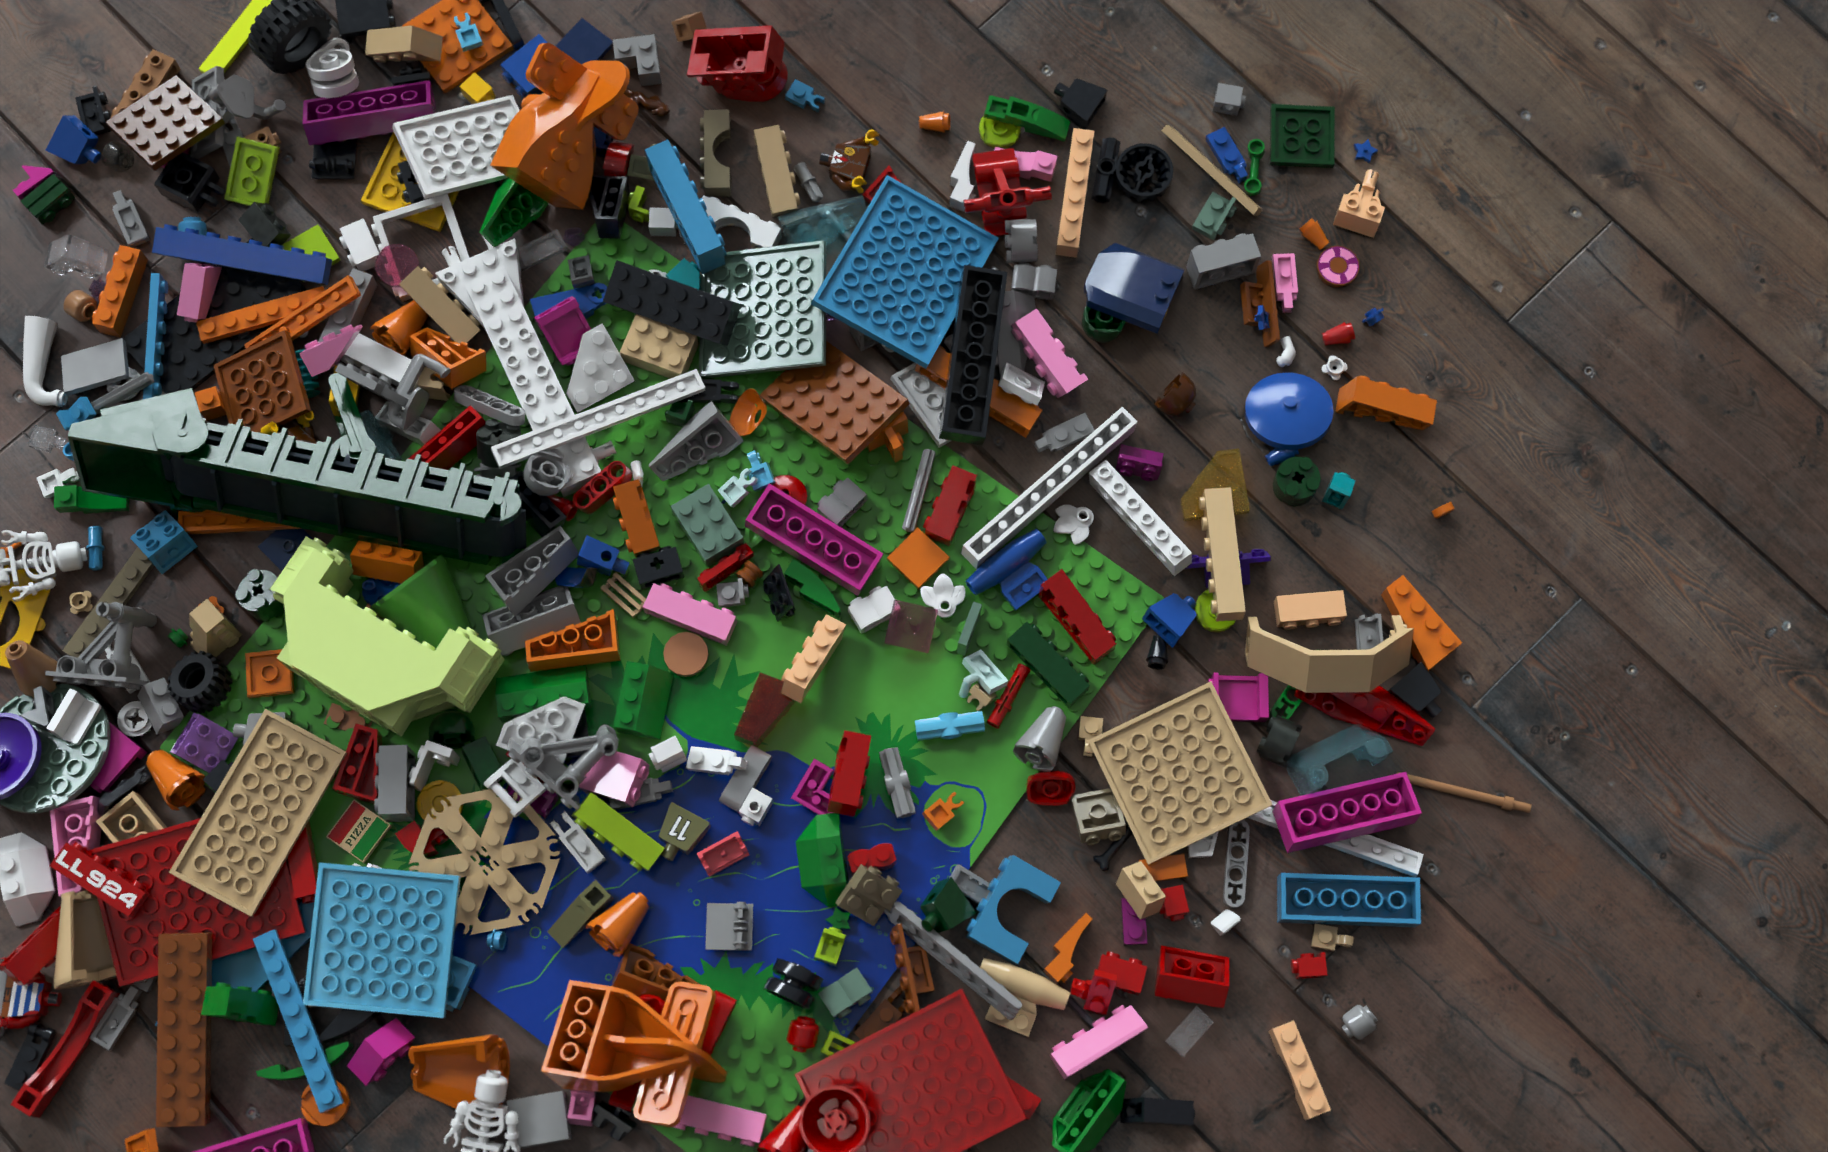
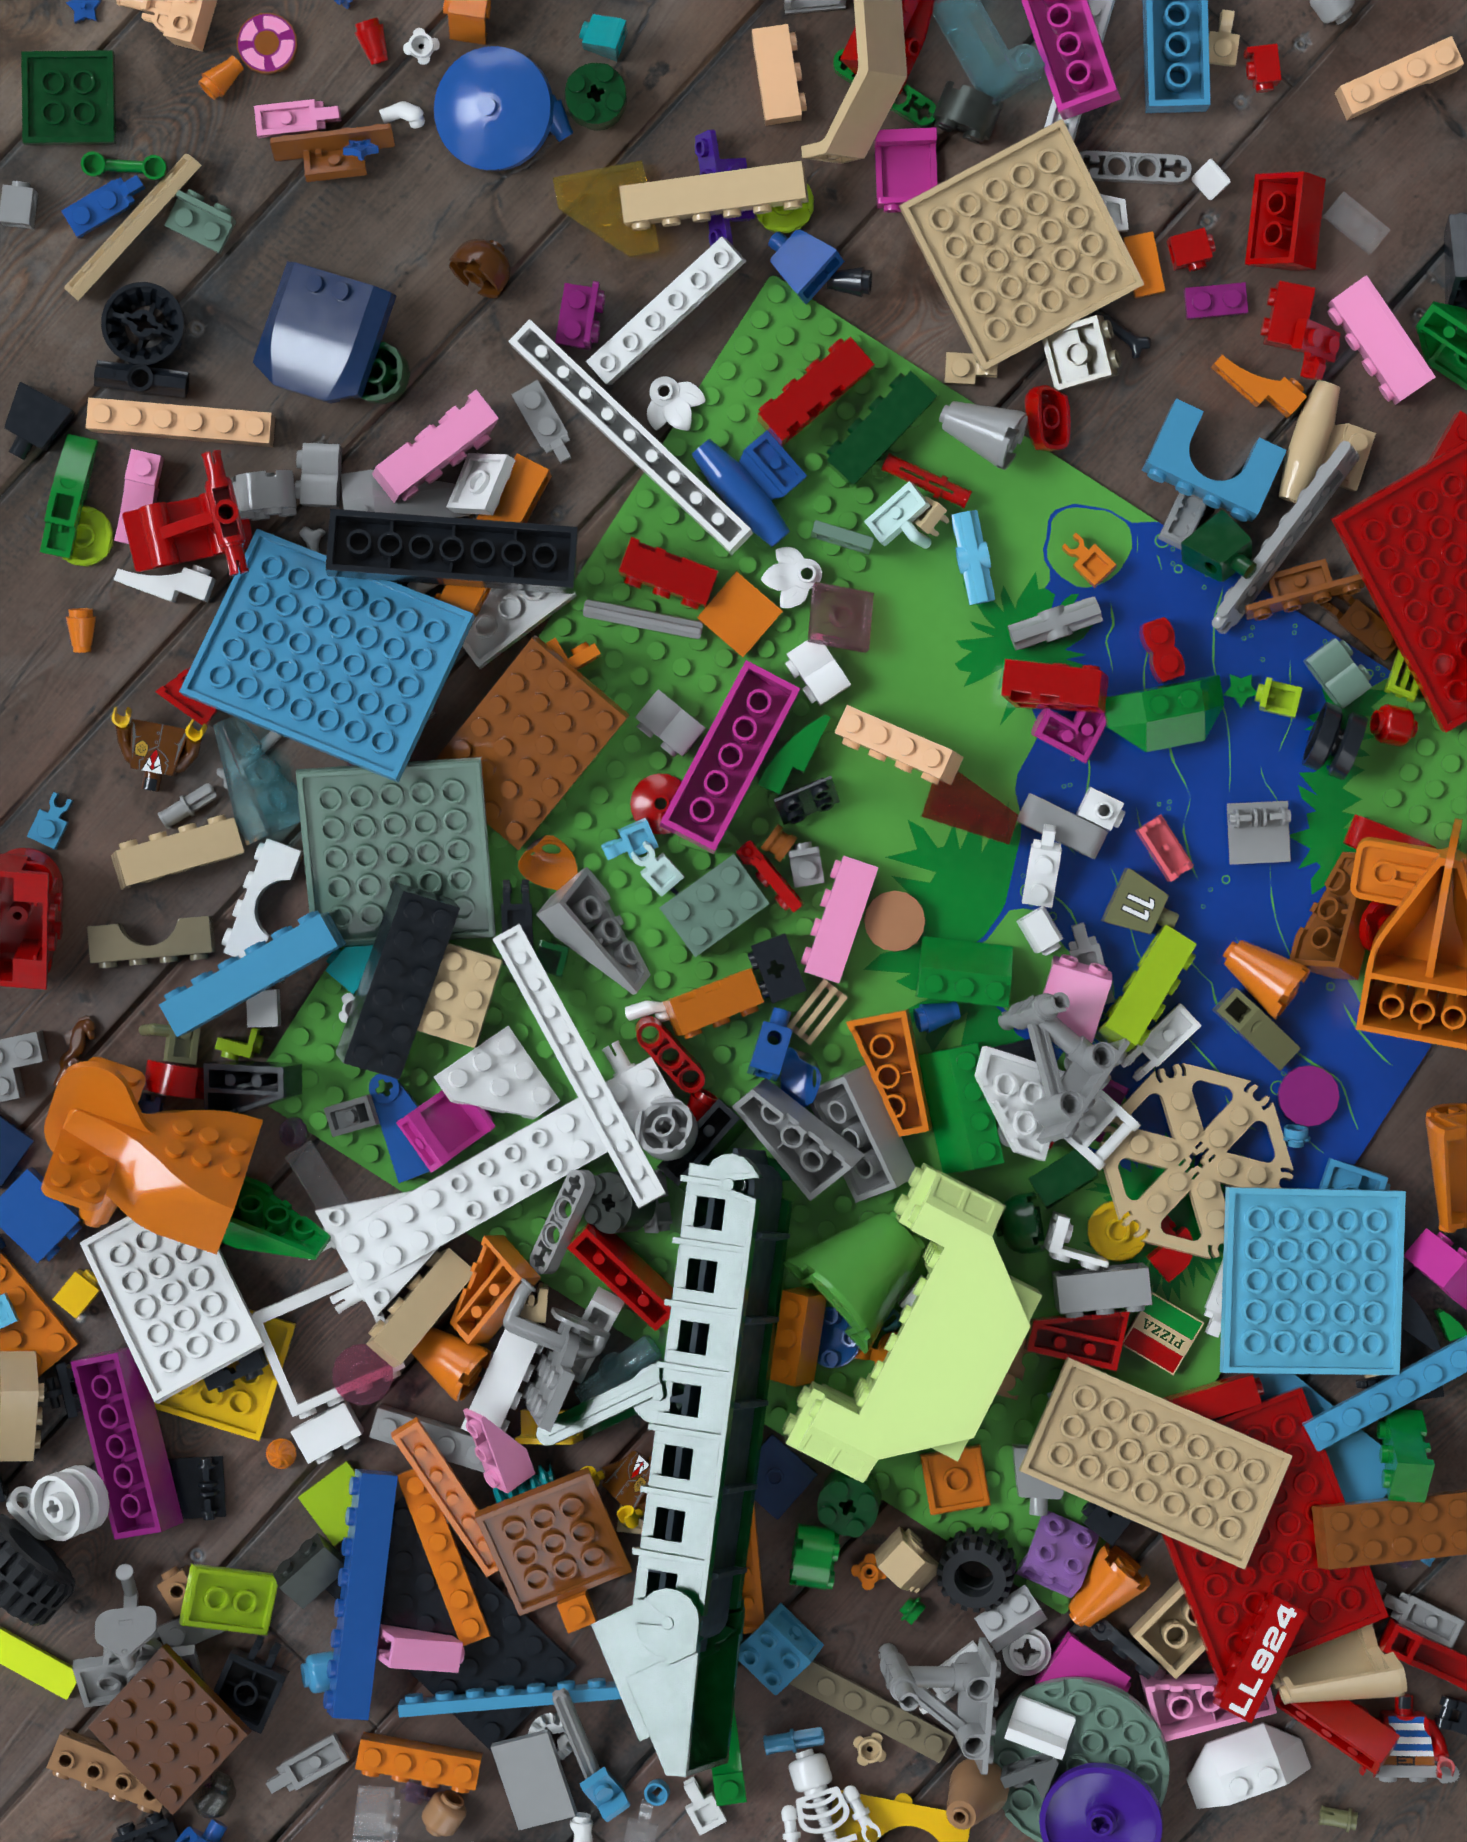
camera: 90 degrees left, 15 degrees up
(225, 566) = (814, 1557): none -> green brick
(349, 215) = (281, 1453): none -> orange plate
(526, 952) = (1308, 1095): none -> magenta tile
(613, 678) = (935, 1015): none -> blue cone
(869, 894) = (1211, 649): dark tan plate -> none
(1140, 890) = (1180, 292): tan brick -> none
(1223, 260) = (275, 206): light grey brick -> none

